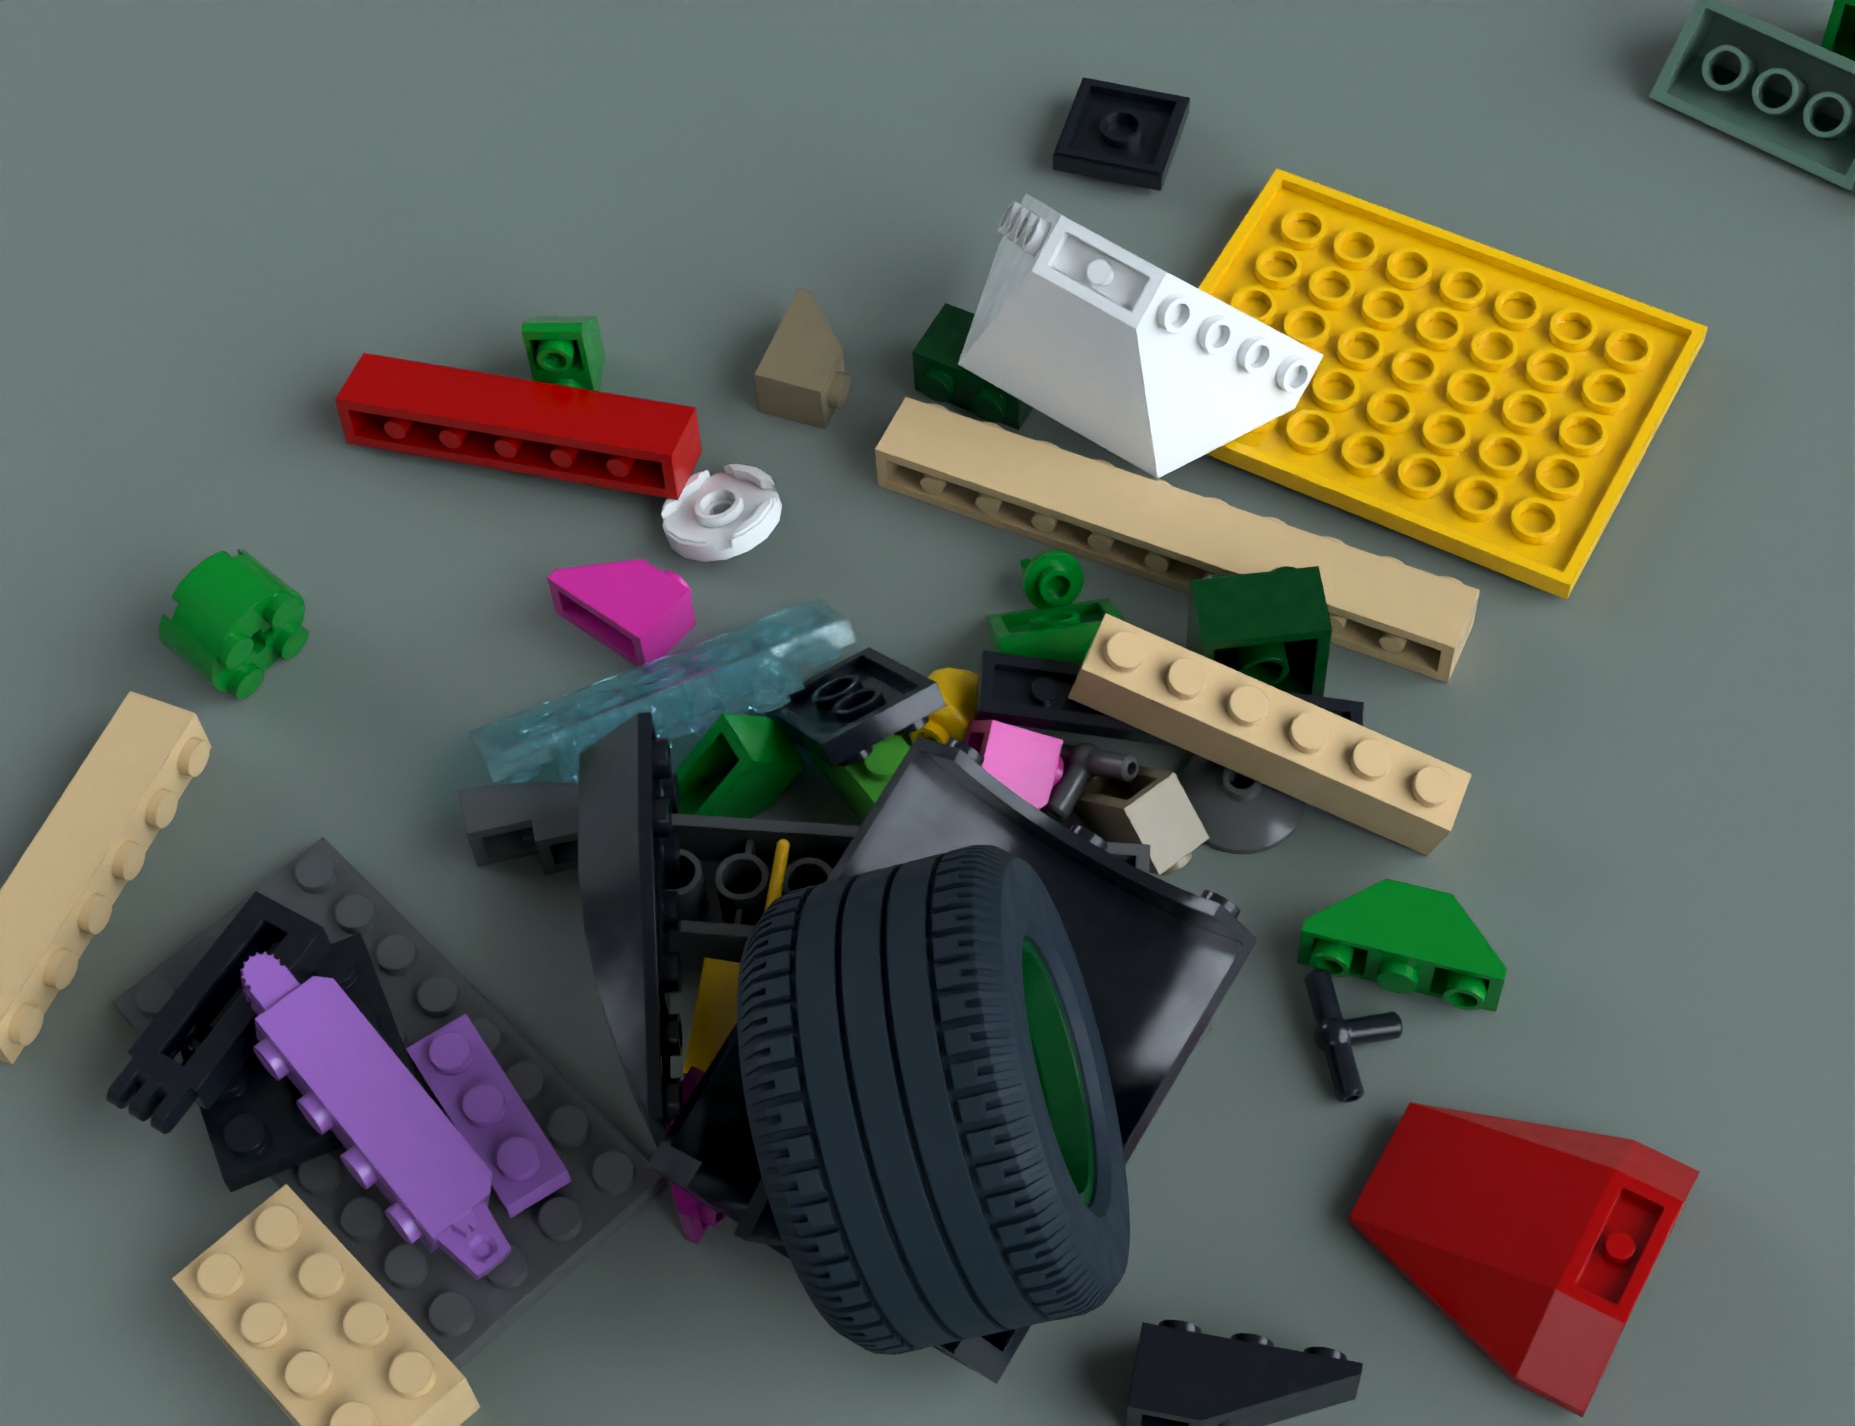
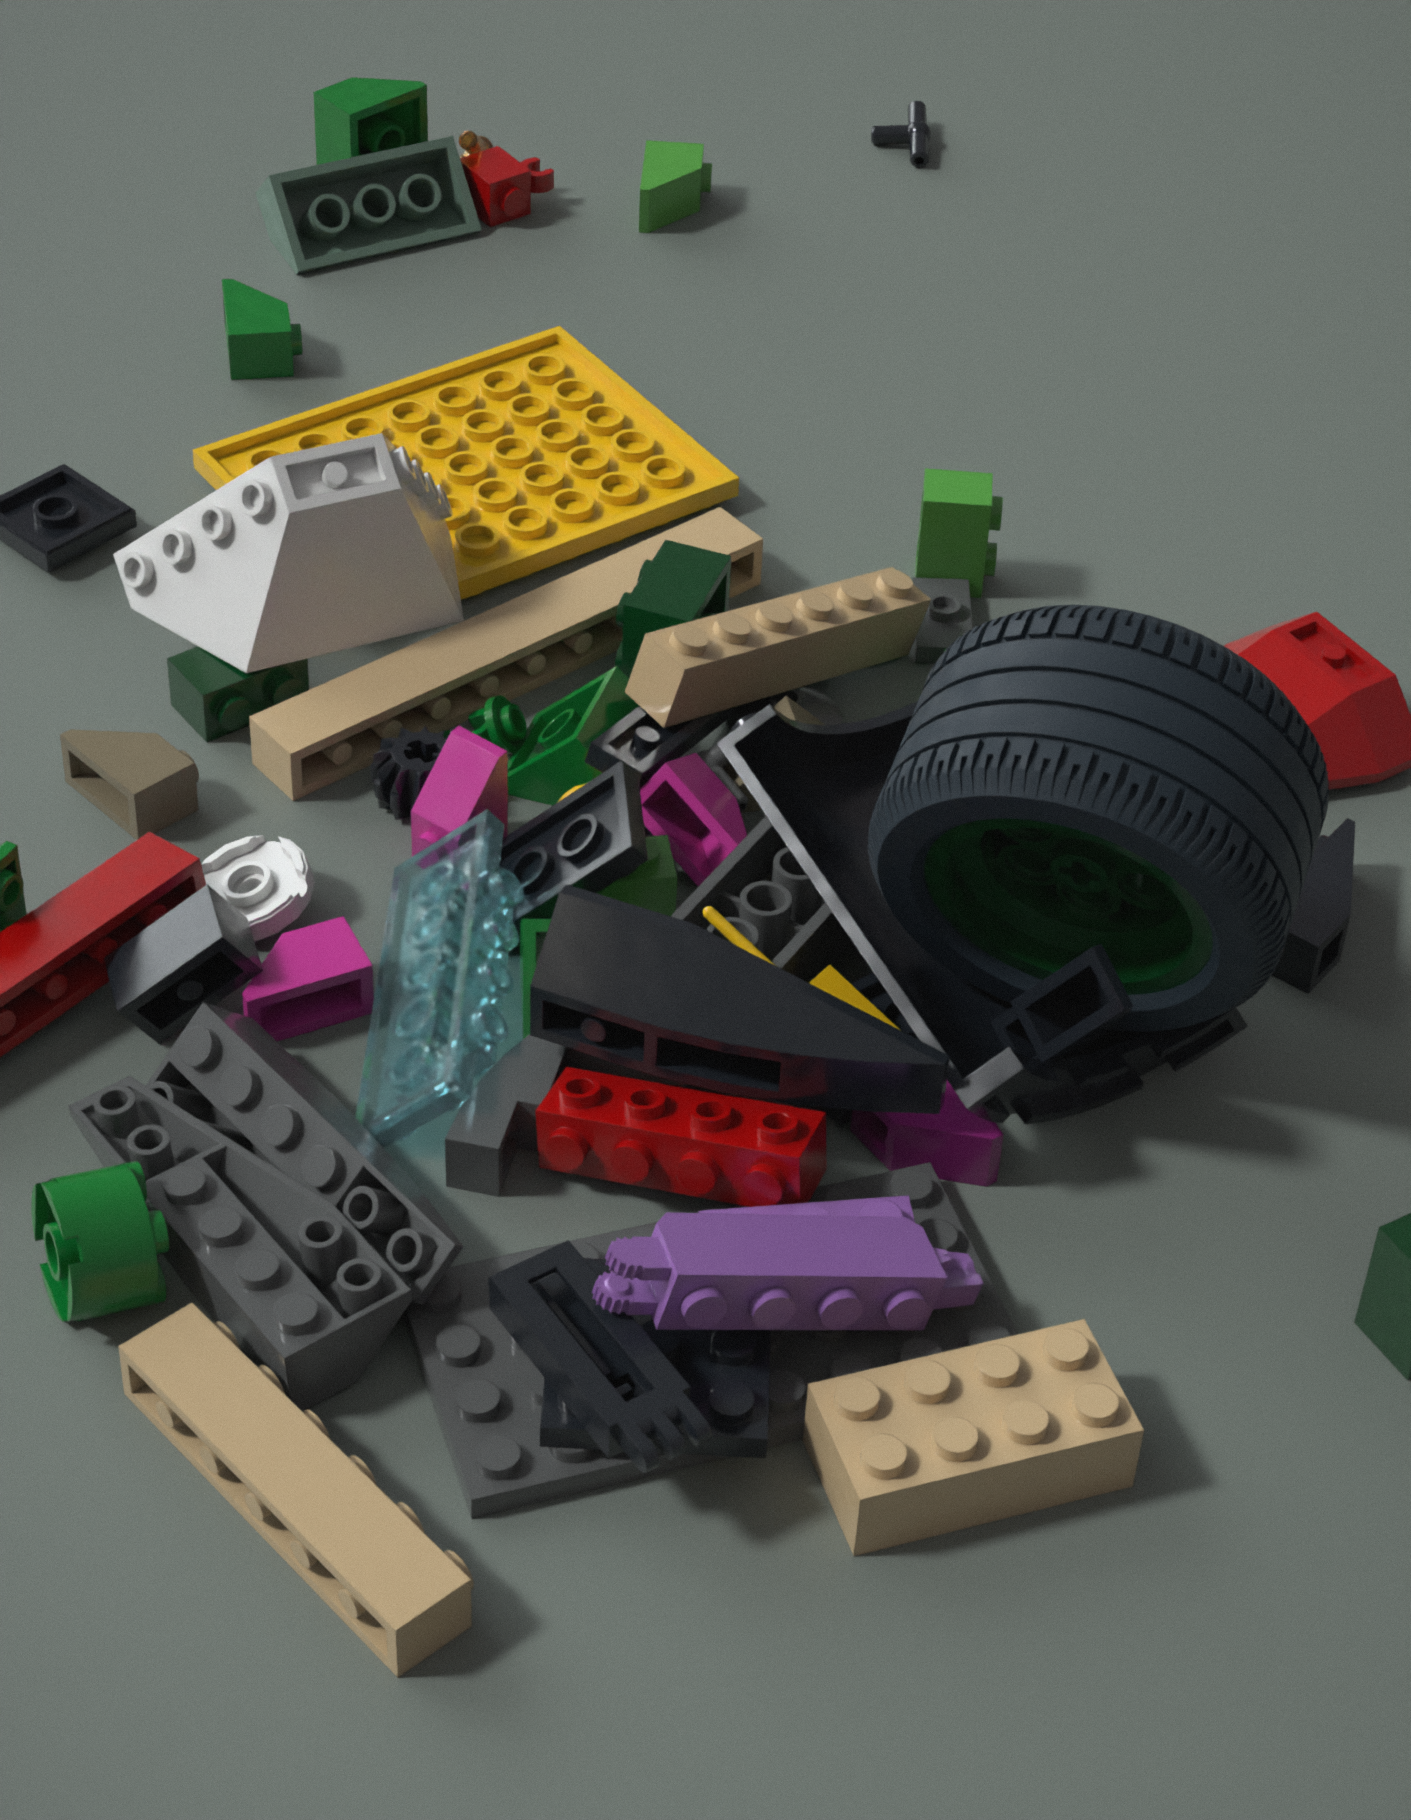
camera: 70 degrees left, 15 degrees down
(288, 712) = (253, 1243): none -> dark grey wedge
(417, 695) = (268, 1103): none -> dark grey wedge
(553, 982) = (681, 1139): none -> red brick
(570, 513) = (180, 961): none -> black brick
(889, 604) = (462, 784): none -> dark pink slope
(942, 555) = (403, 768): none -> black gear
(1493, 858) = (945, 618): none -> dark grey plate
(1494, 117) = (258, 333): none -> green slope
(1593, 805) = (956, 527): none -> bright green brick

